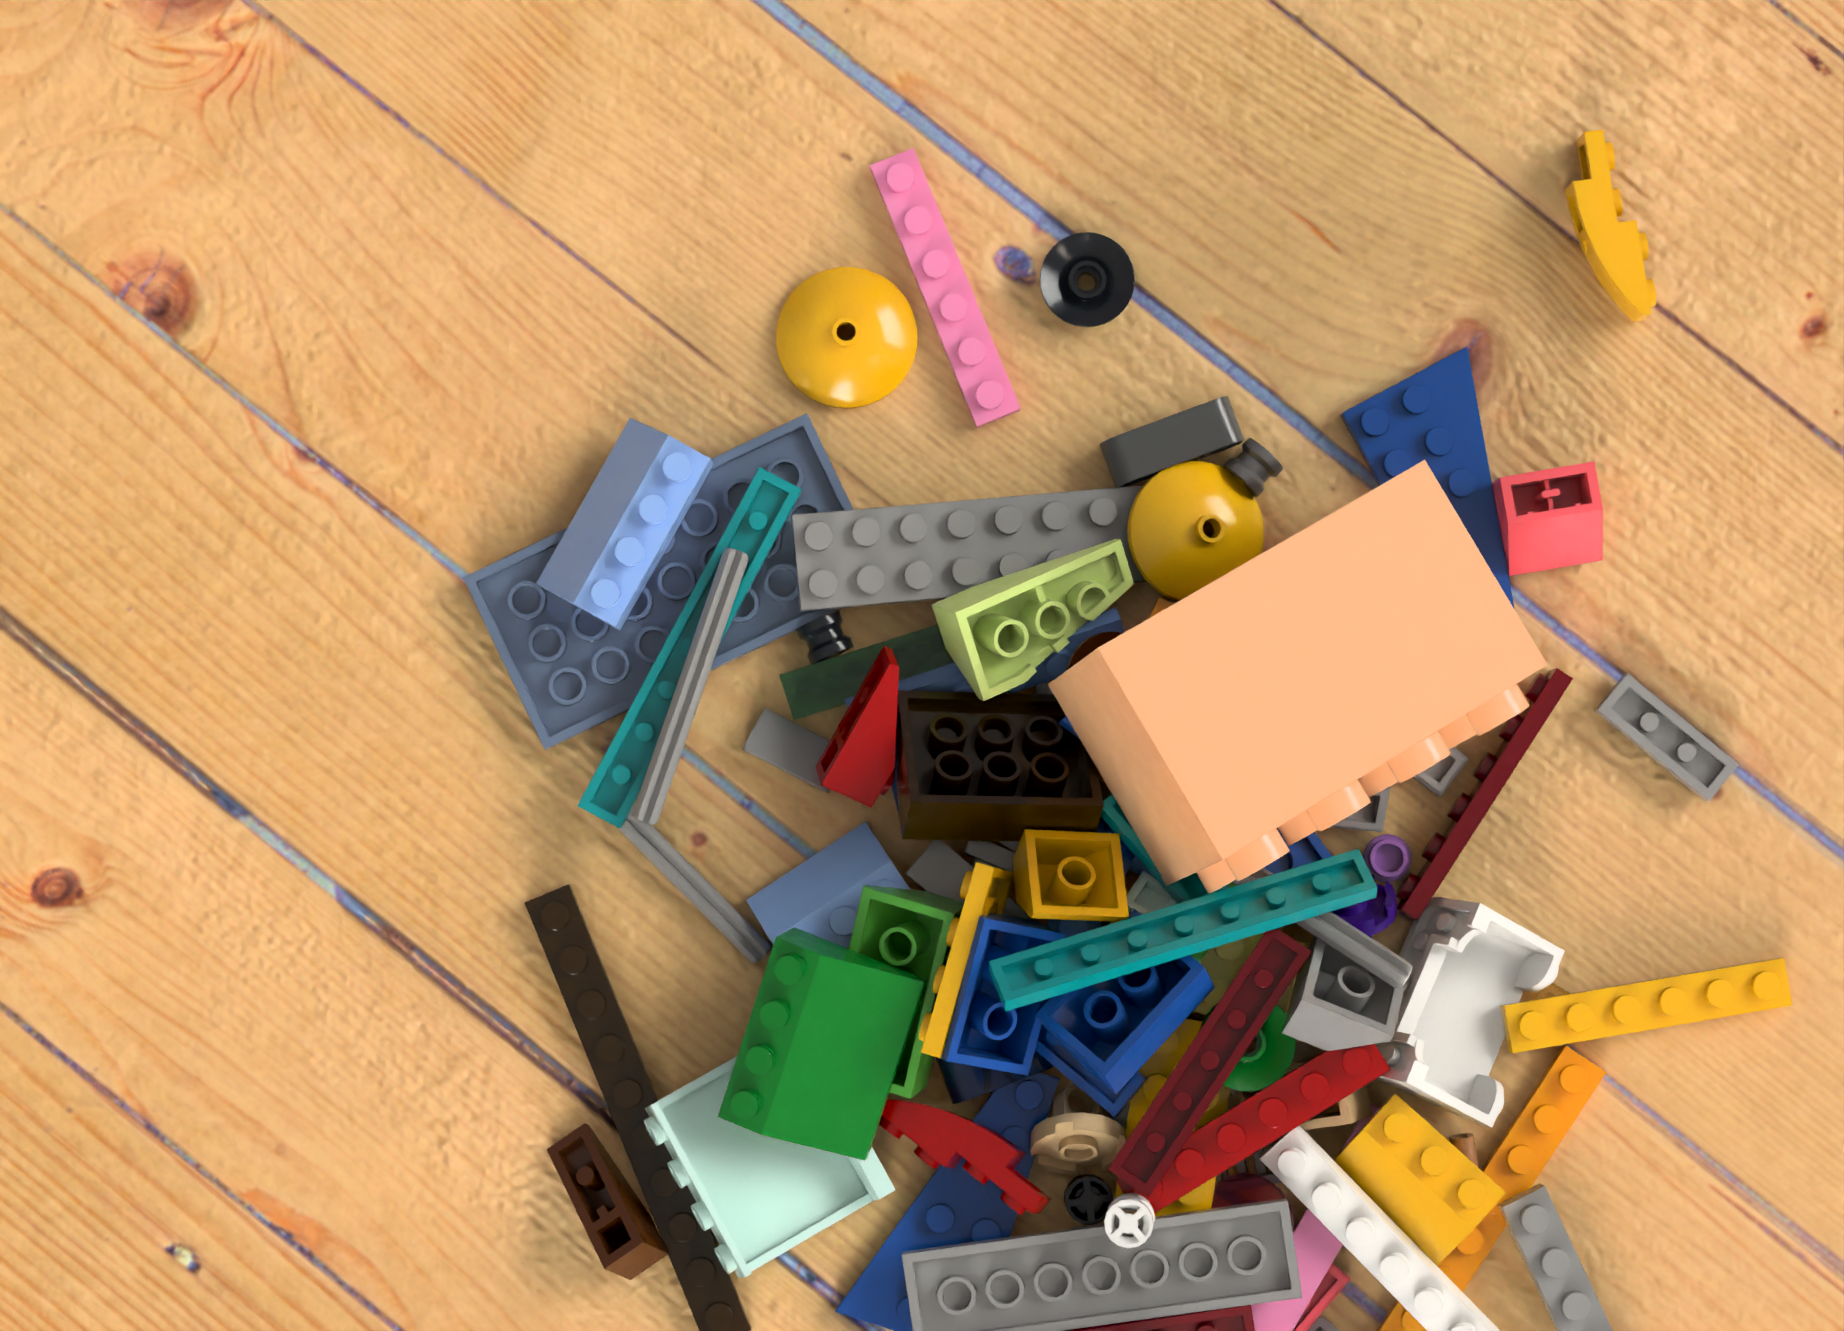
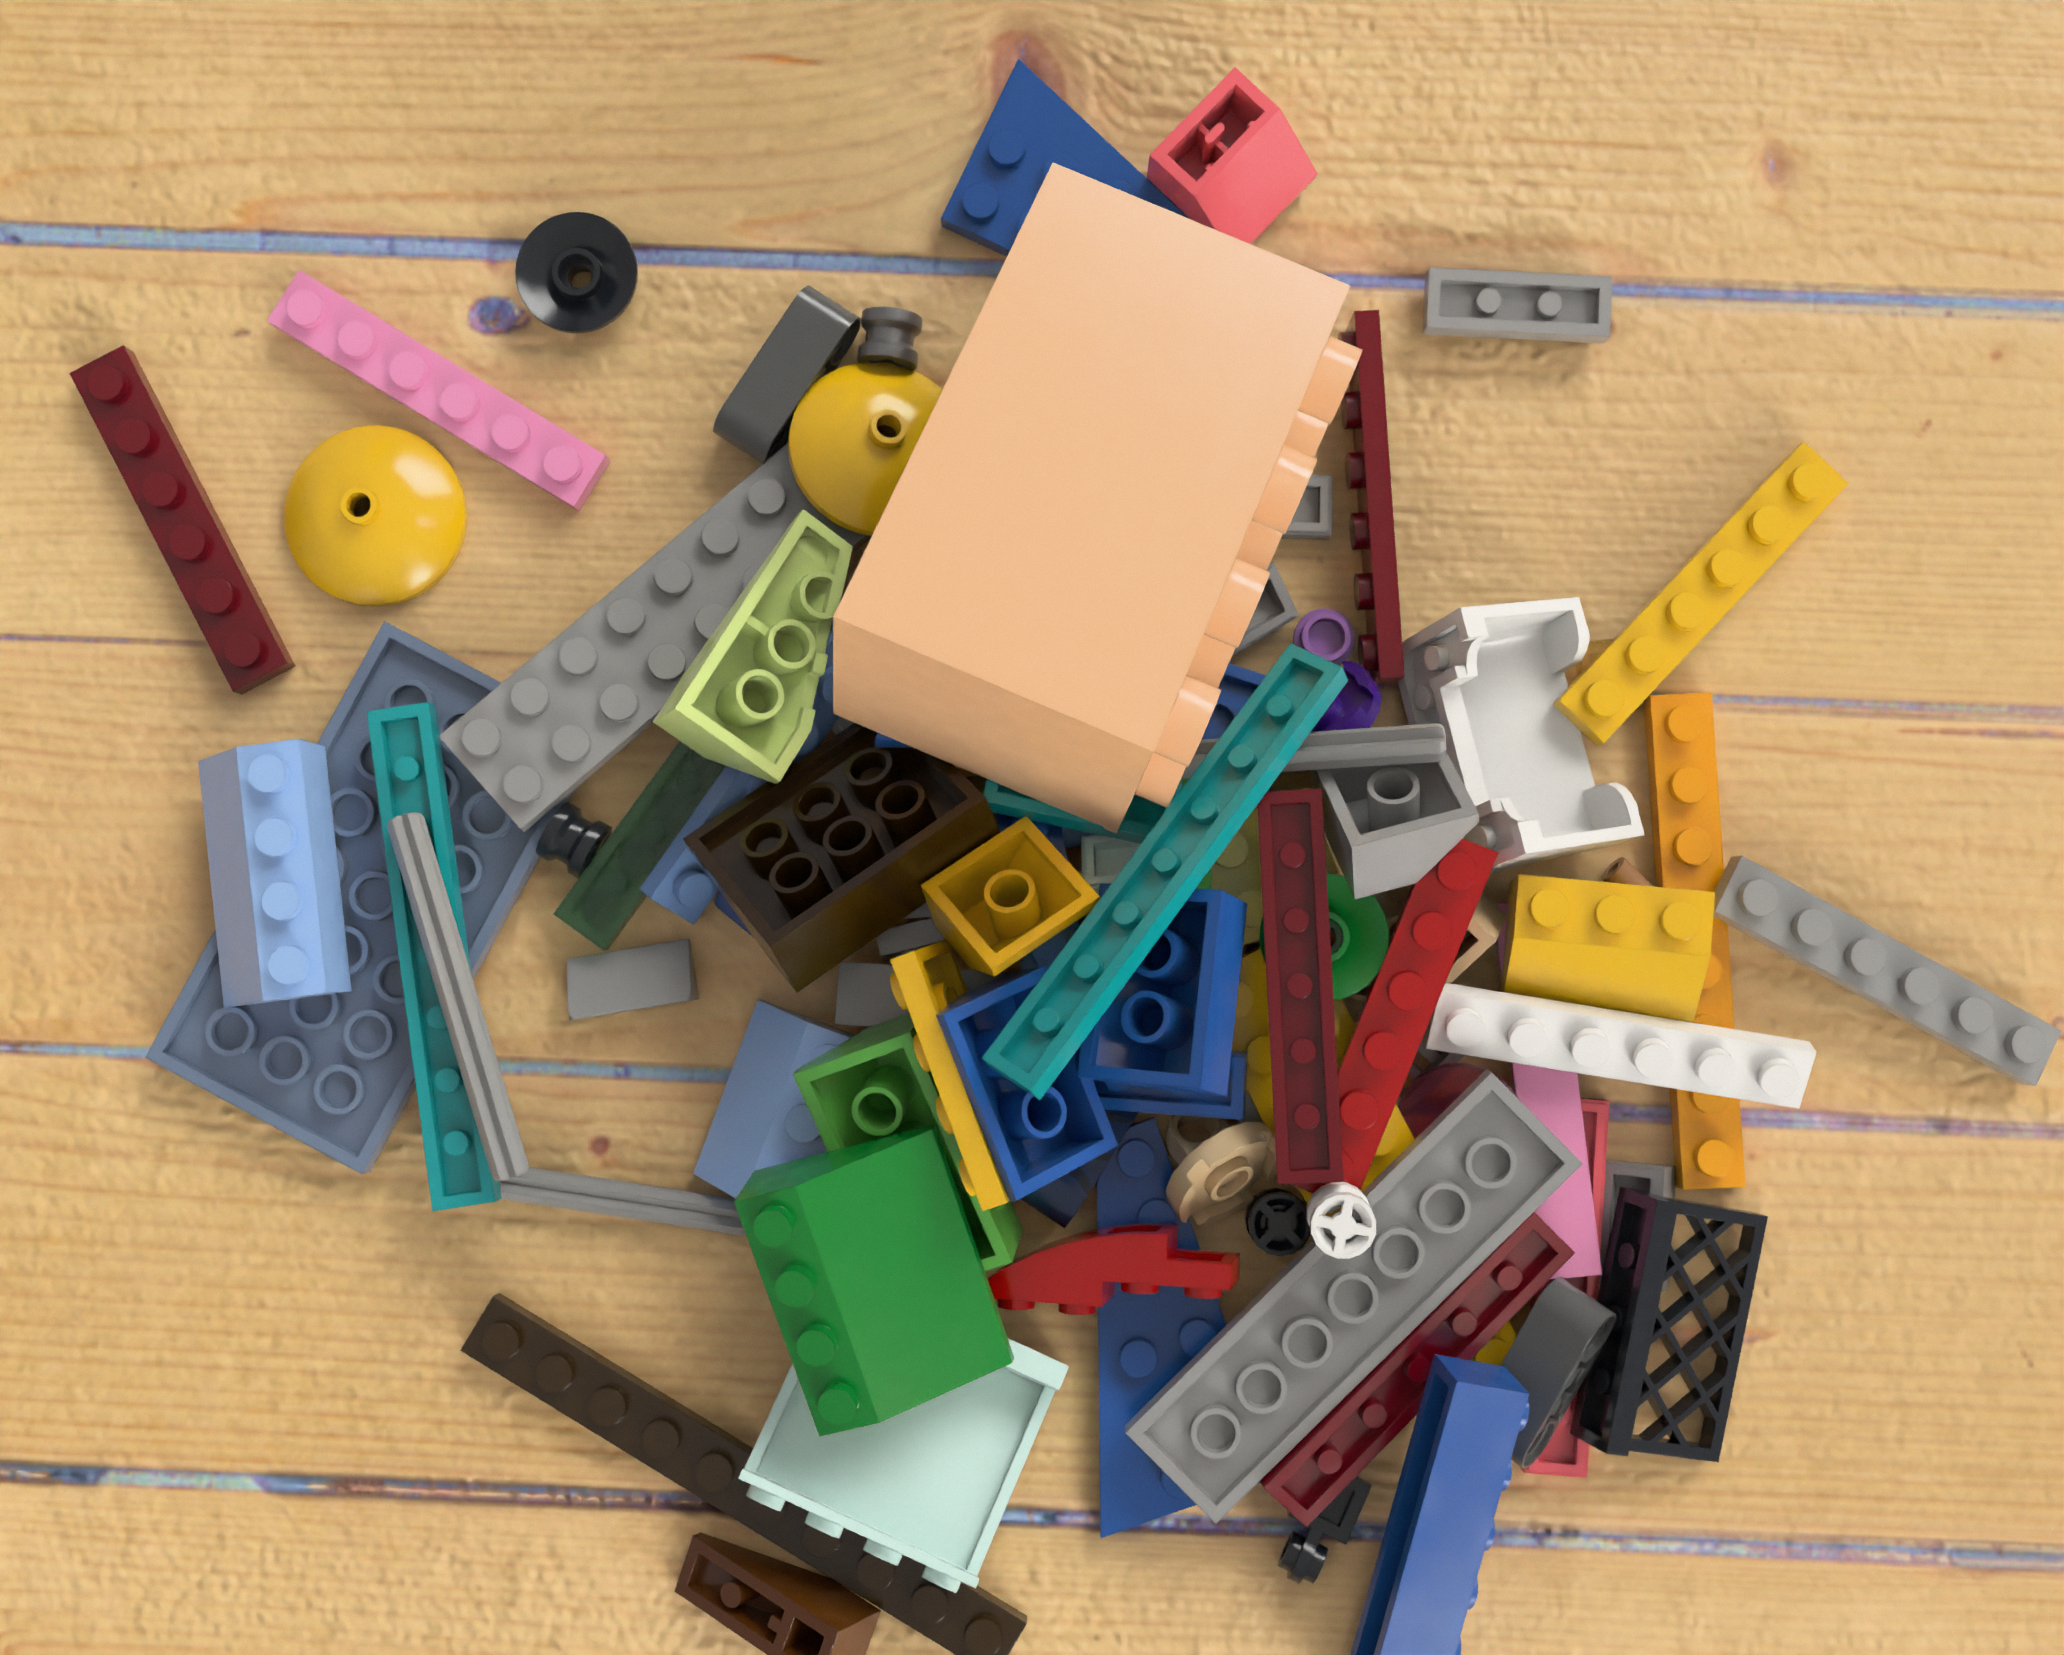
camera: 30 degrees left, 0 degrees up
(724, 251) = (182, 520): none -> dark red plate
(863, 747) = (691, 927): red slope -> none

